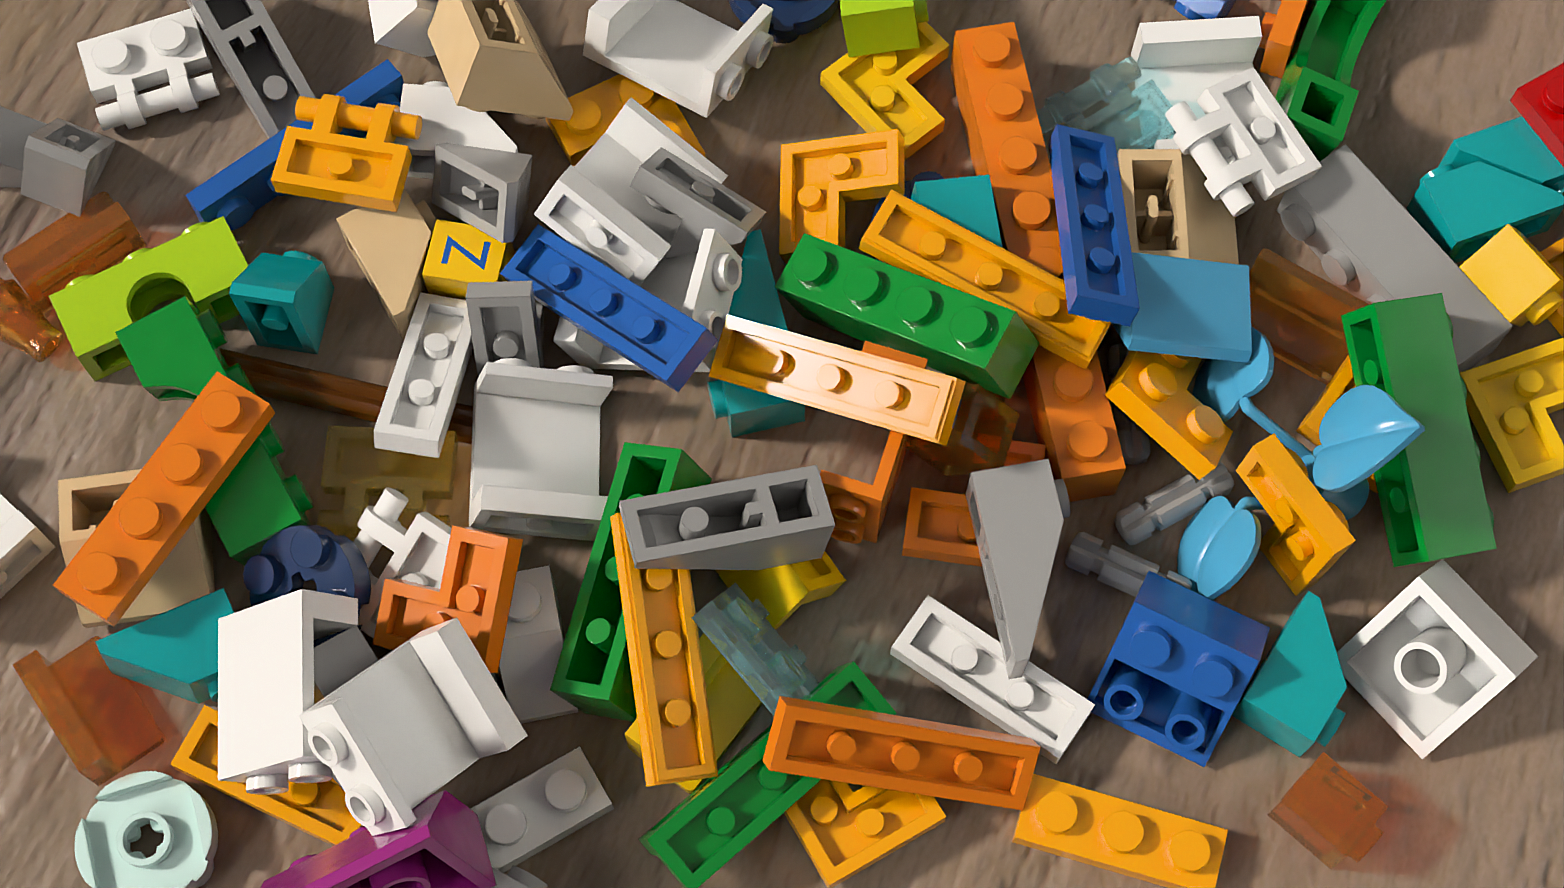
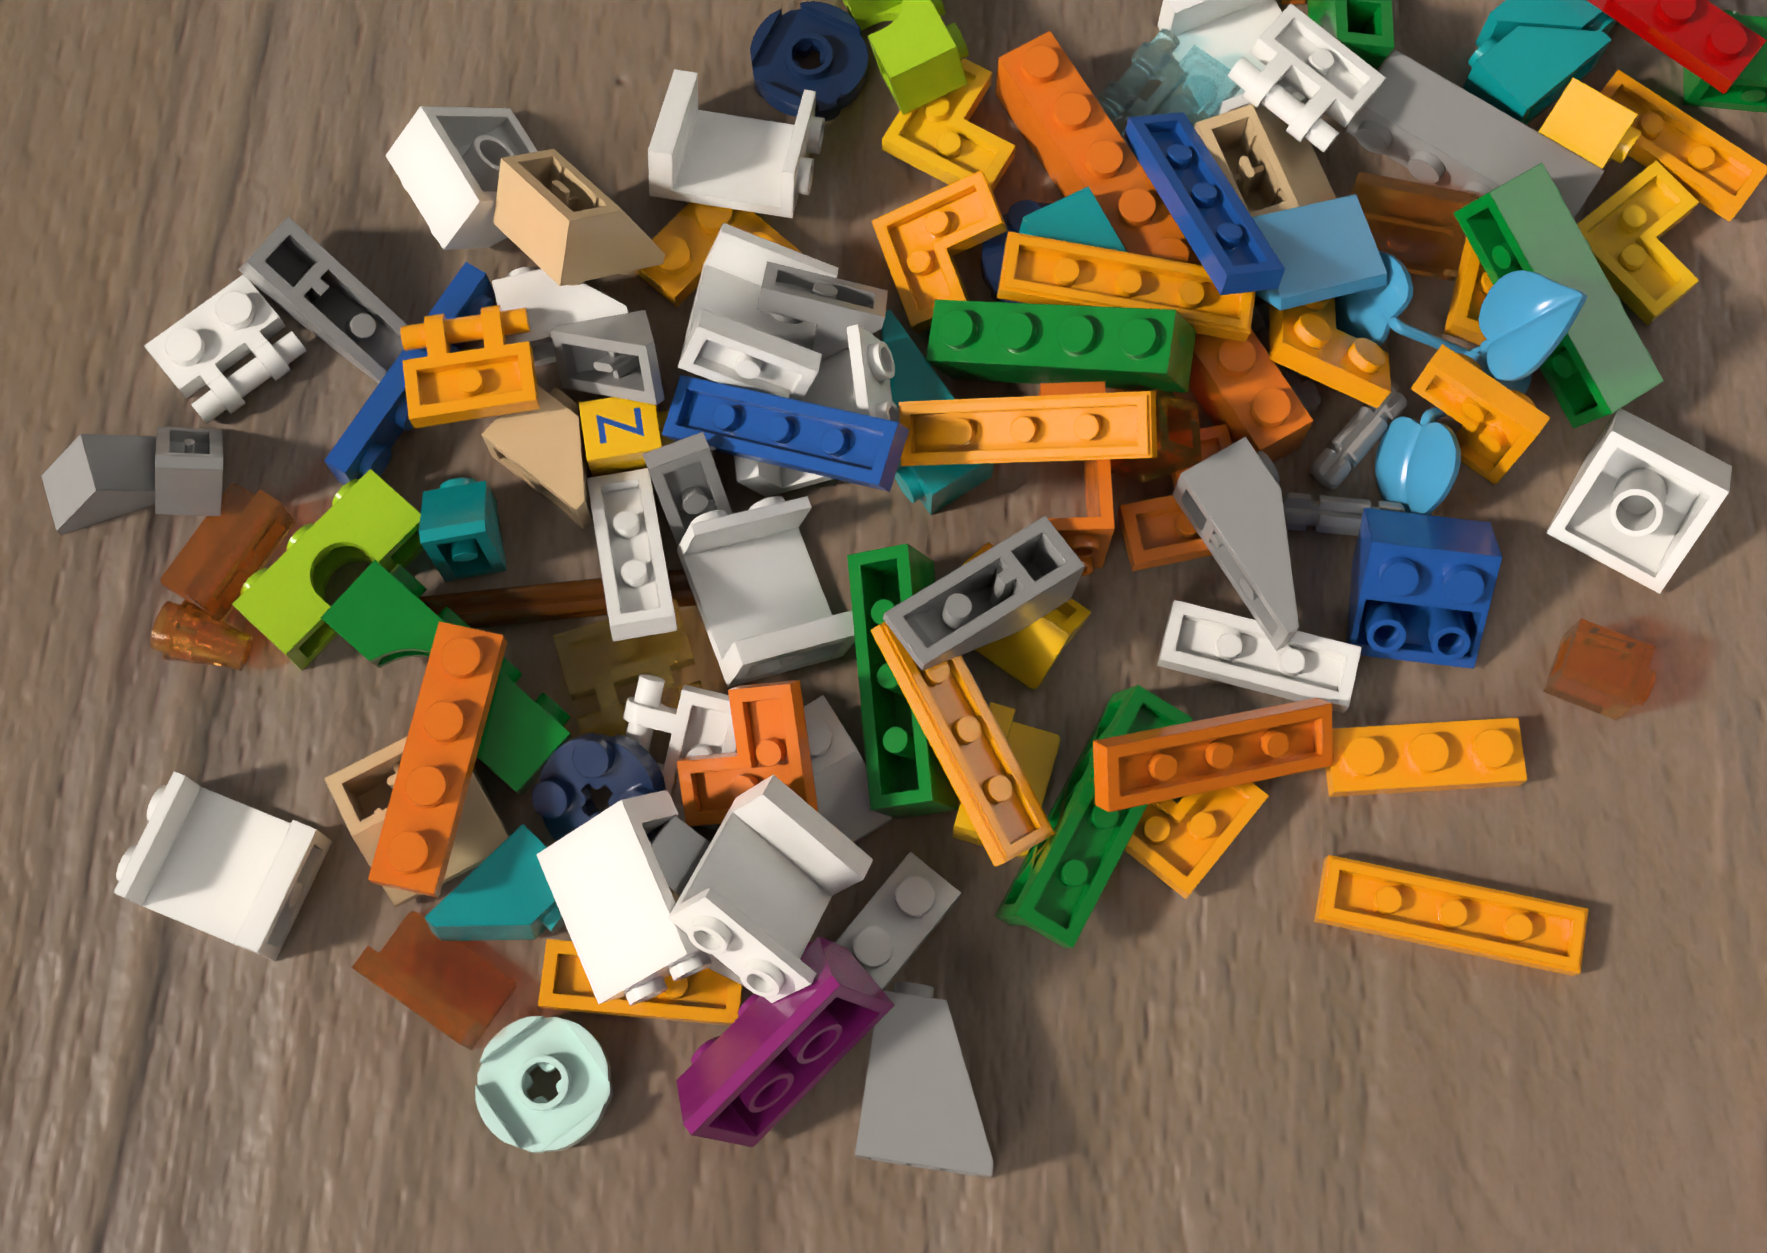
camera: 20 degrees left, 5 degrees up
(755, 648) = (1042, 704): clear light blue plate -> none
(1297, 683) = (1538, 561): teal slope -> none

